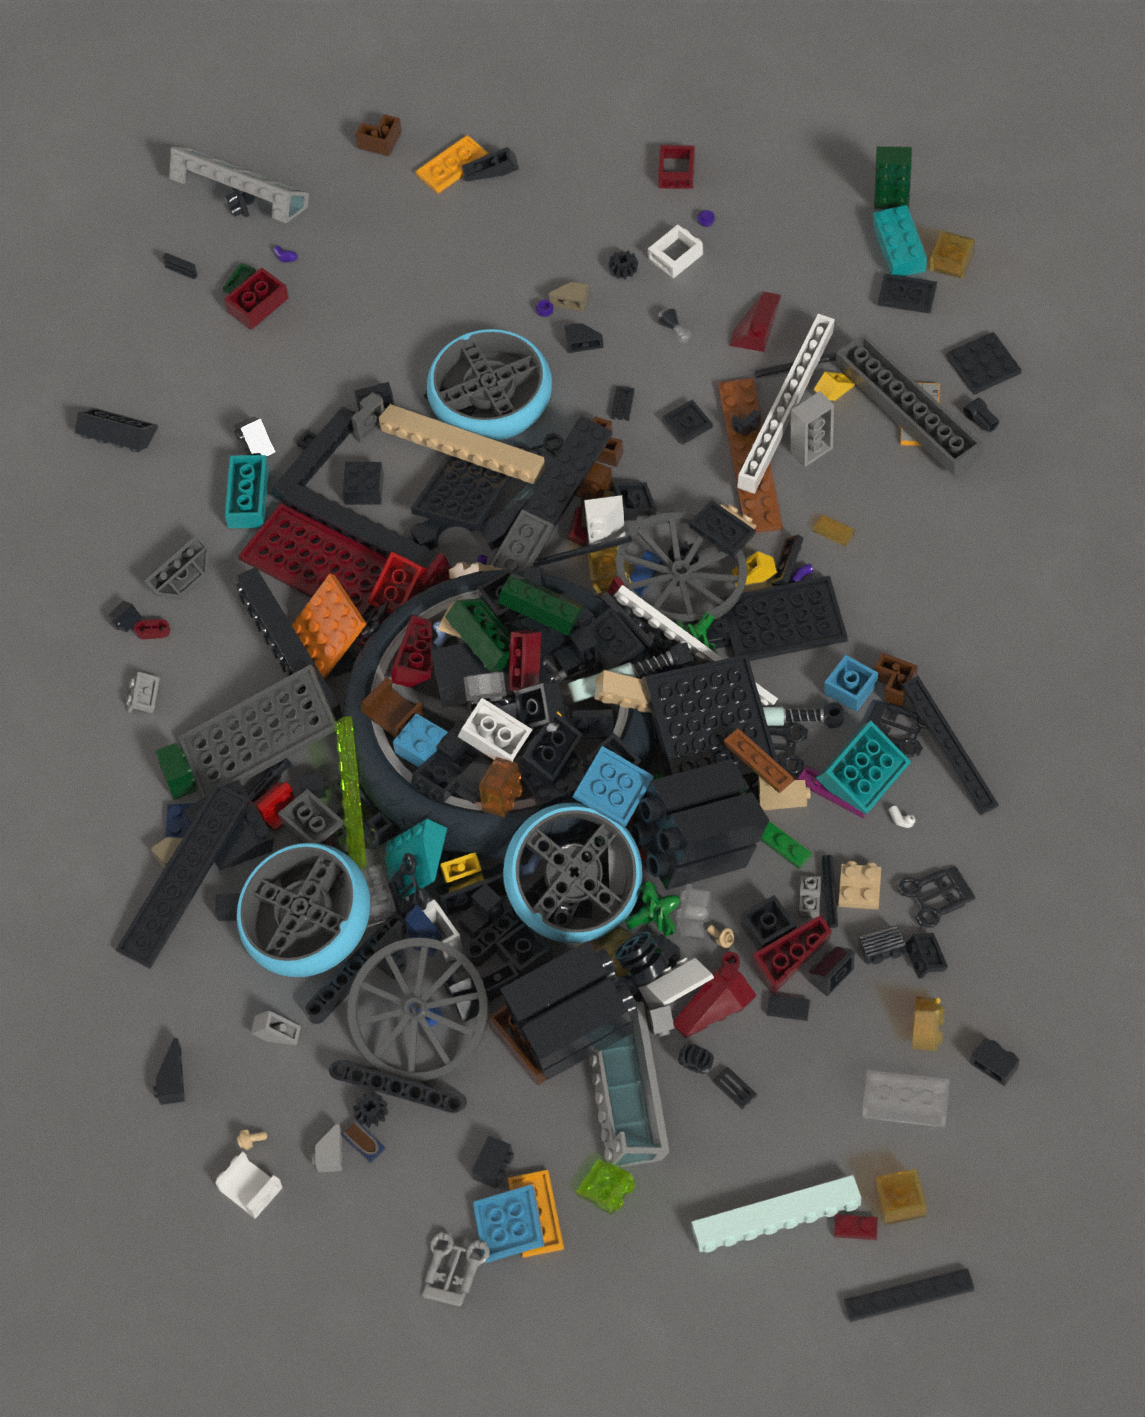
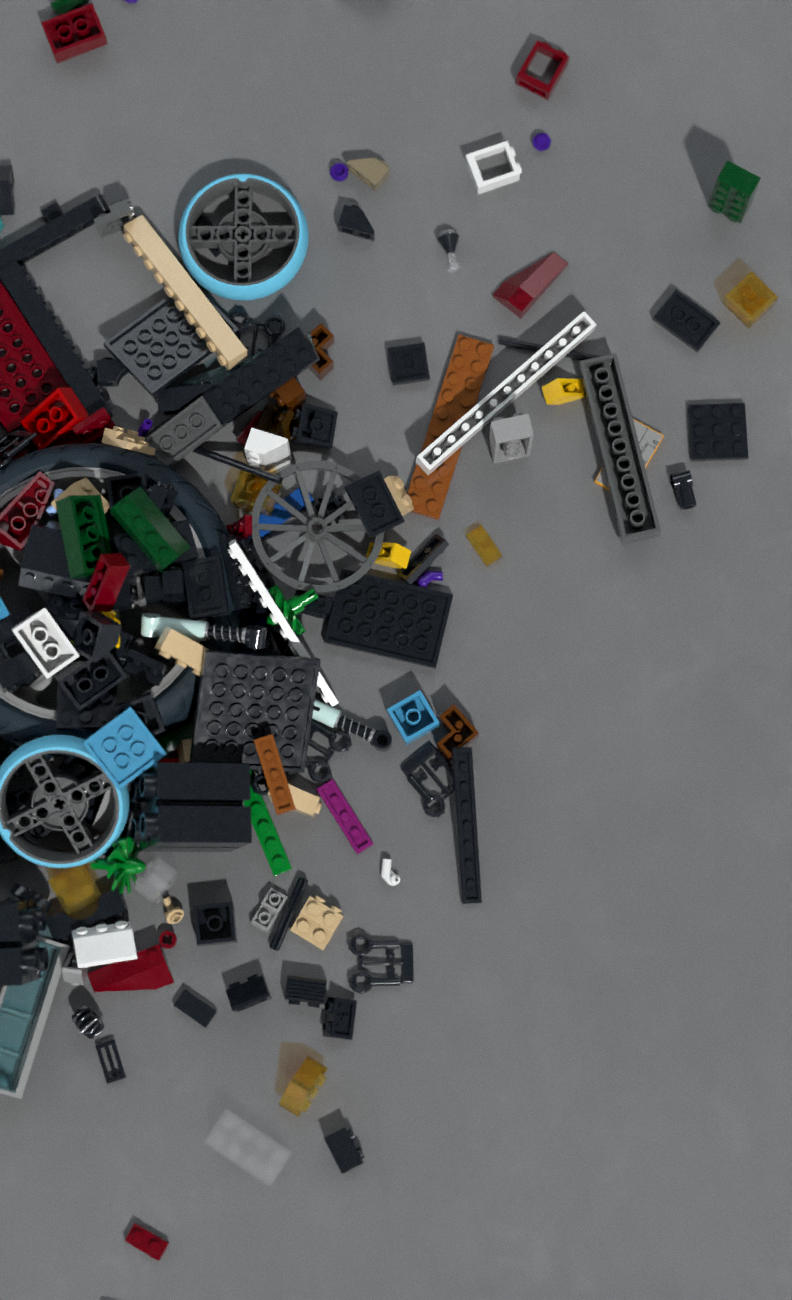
camera: 20 degrees right, 20 degrees up
(363, 483) = (79, 287): black brick -> none
(381, 389) = (140, 197): black brick -> none
(484, 686) = (57, 591): clear brick -> none
(500, 787) = (29, 695): clear orange brick -> none
(621, 414) = (352, 325): black tile -> none
(623, 264) = (436, 165): black gear -> none
(641, 958) = (80, 912): black wheel -> none
(747, 425) = (461, 399): black bracket -> none
(776, 1213) = (84, 1198): light aqua brick -> none
(788, 954) = (214, 962): dark red wedge -> none
(864, 768) = (380, 809): teal slope -> none
(899, 241) = (709, 259): teal brick -> none
(900, 1196) = (195, 1237): clear yellow brick -> none

